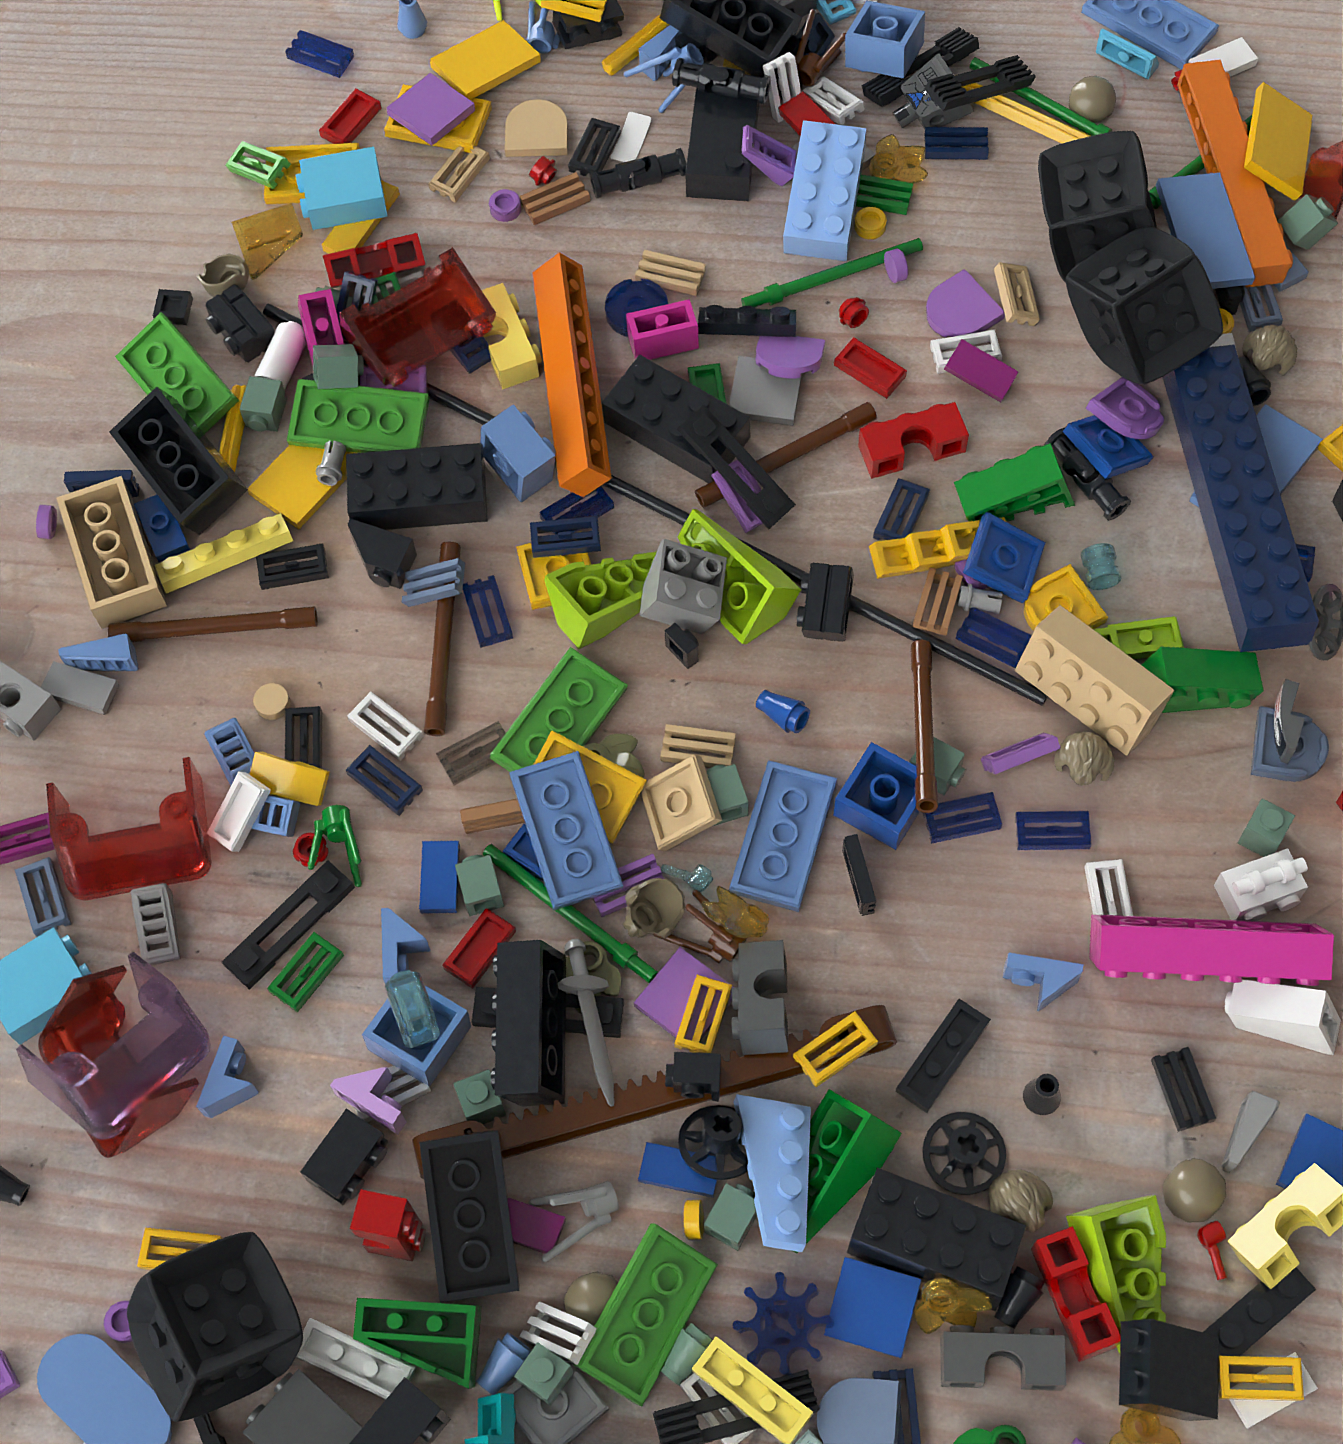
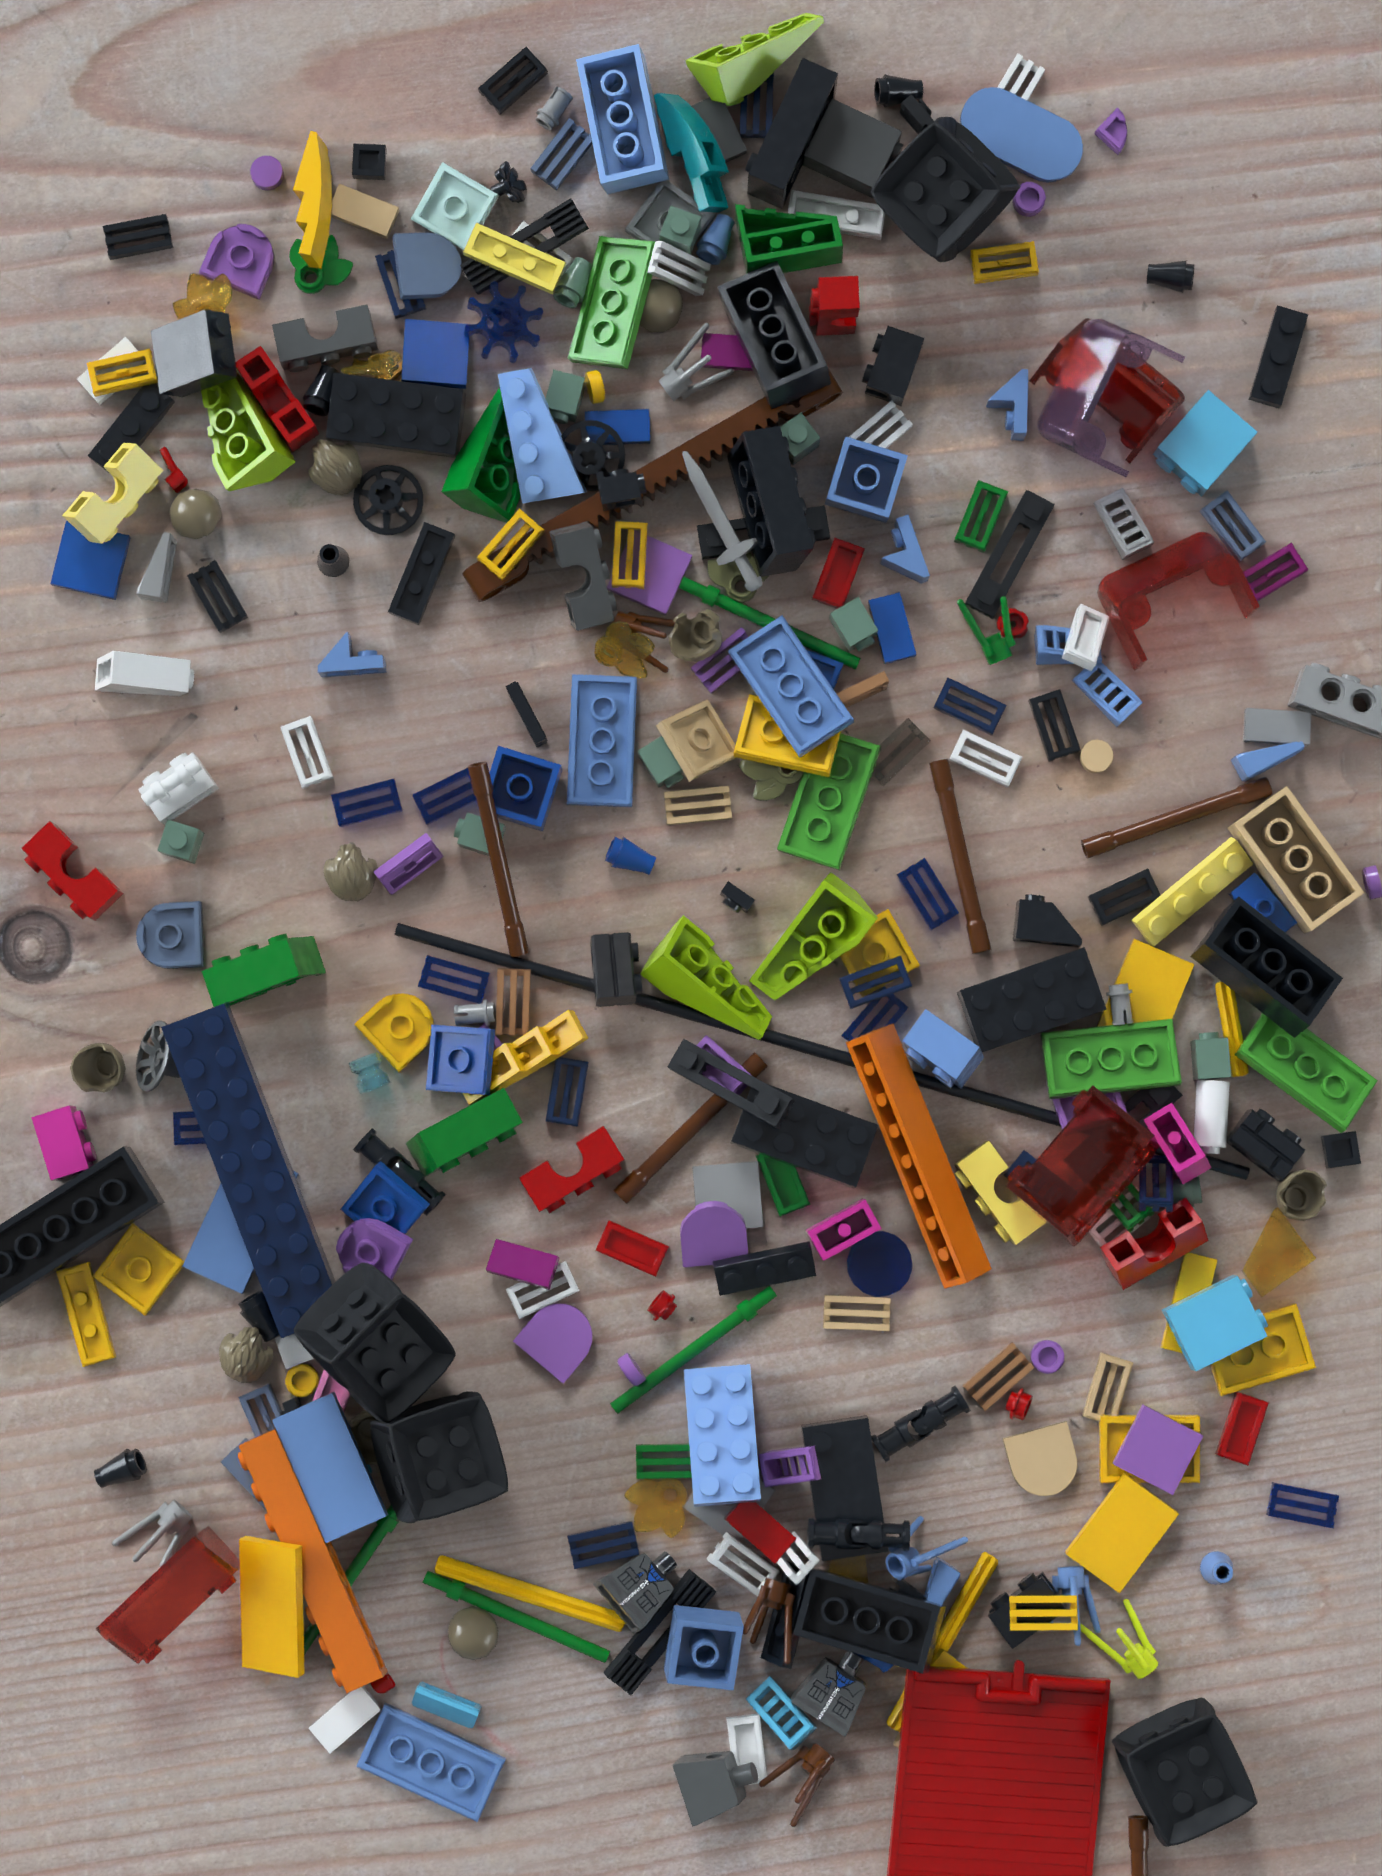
camera: 160 degrees right, 20 degrees up
(81, 479) = (1334, 933): dark blue tile -> none
(272, 172) = (1292, 1332): bright green tile -> none
(290, 779) = (1045, 677): yellow slope -> none
(336, 366) = (1146, 1097): sand green brick -> none
(363, 1093) = (895, 413): lavender slope -> none
(412, 1008) = (867, 472): clear light blue brick -> none
(434, 577) = (1003, 899): sand blue tile -> none
(584, 168) = (972, 1479): black tile -> none
(631, 137) = (941, 1474): white sticker -> none
(684, 587) = (747, 947): light grey slope -> none
(698, 879) = (666, 680): clear light blue hand -> none
(870, 223) = (670, 1422): yellow tile -> none
(947, 89) = (563, 1634): black container -> none
(1012, 292) = (509, 1363): tan tile -> none
(1093, 680) = (355, 940): tan brick -> none
(1143, 637) = (324, 1005): lime hinge -> none
(1211, 948) = (213, 710): dark pink brick -> none
(1286, 726) = (174, 936): dark grey slope -> none
(1308, 221) = (229, 1515): sand green brick -> none

